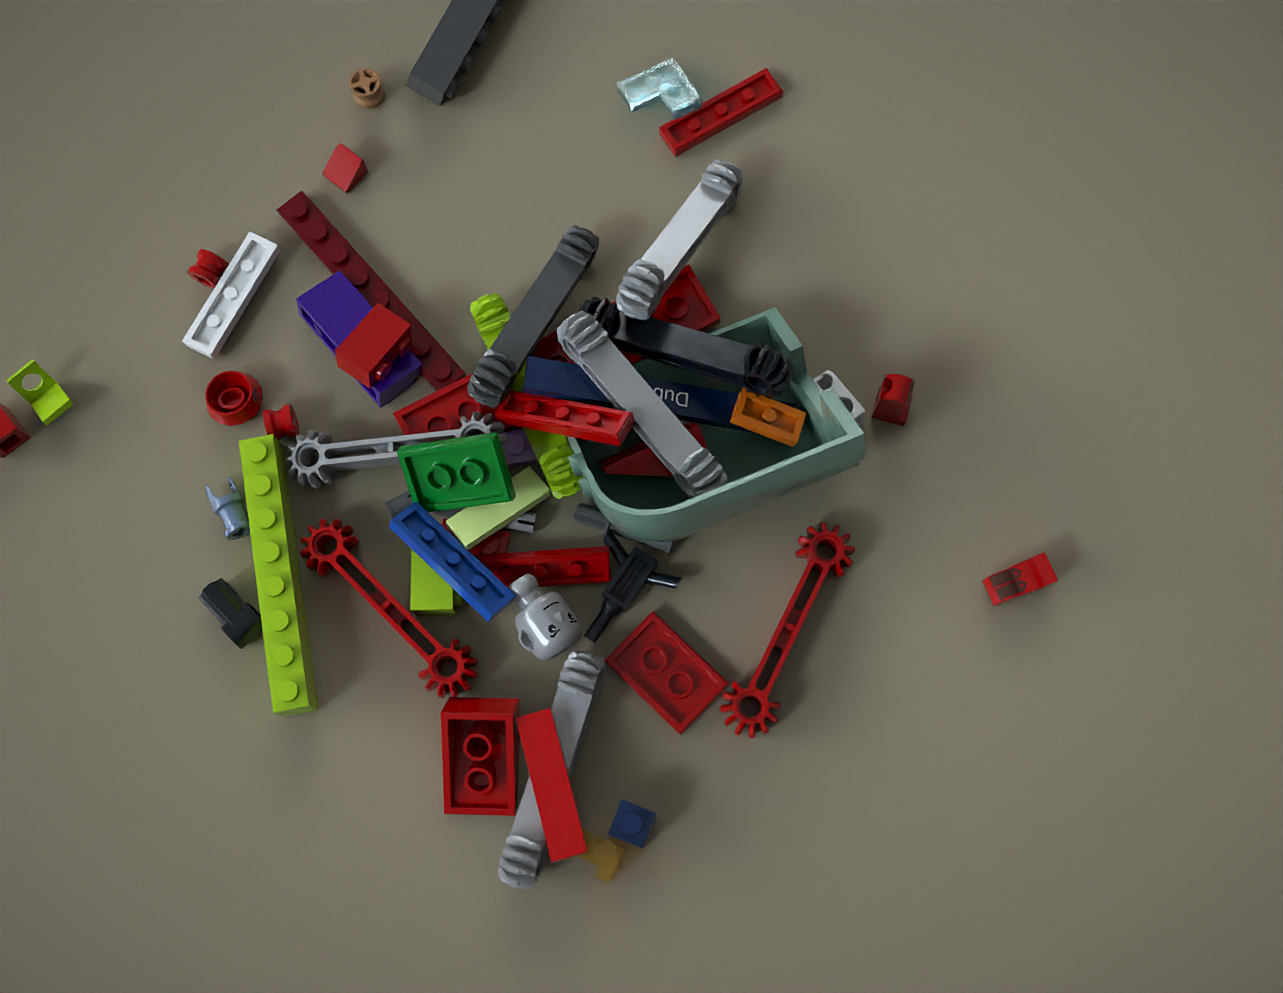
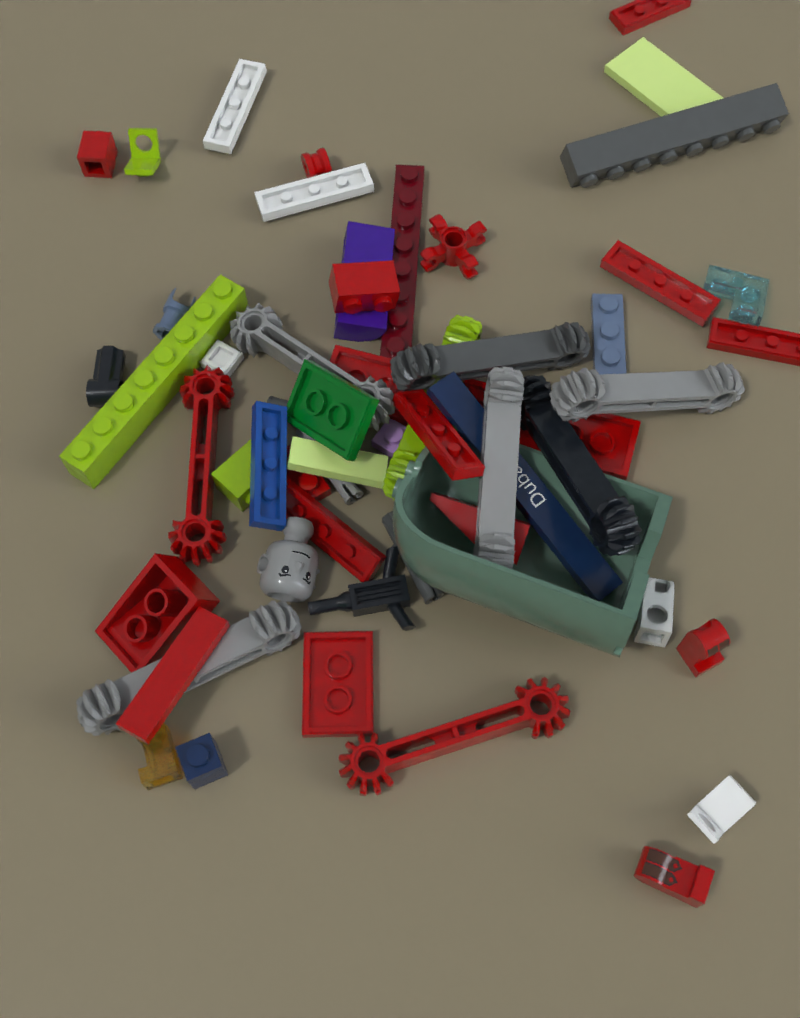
camera: 45 degrees right, 10 degrees down
(74, 275) = (234, 106): none -> white plate
(233, 397) = (249, 251): red hat -> none
(281, 422) = (260, 290): red wheel -> none
(308, 509) = (222, 356): none -> white tile
(344, 168) = (466, 175): red slope -> none
(363, 81) = (531, 138): medium nougat wheel -> none
(402, 230) = (453, 246): none -> red pin
(592, 132) = (660, 283): none -> red plate
(600, 217) = (608, 333): none -> sand blue plate
(768, 417) = (588, 567): orange plate -> none
(1007, 505) = (721, 808): none -> white bracket

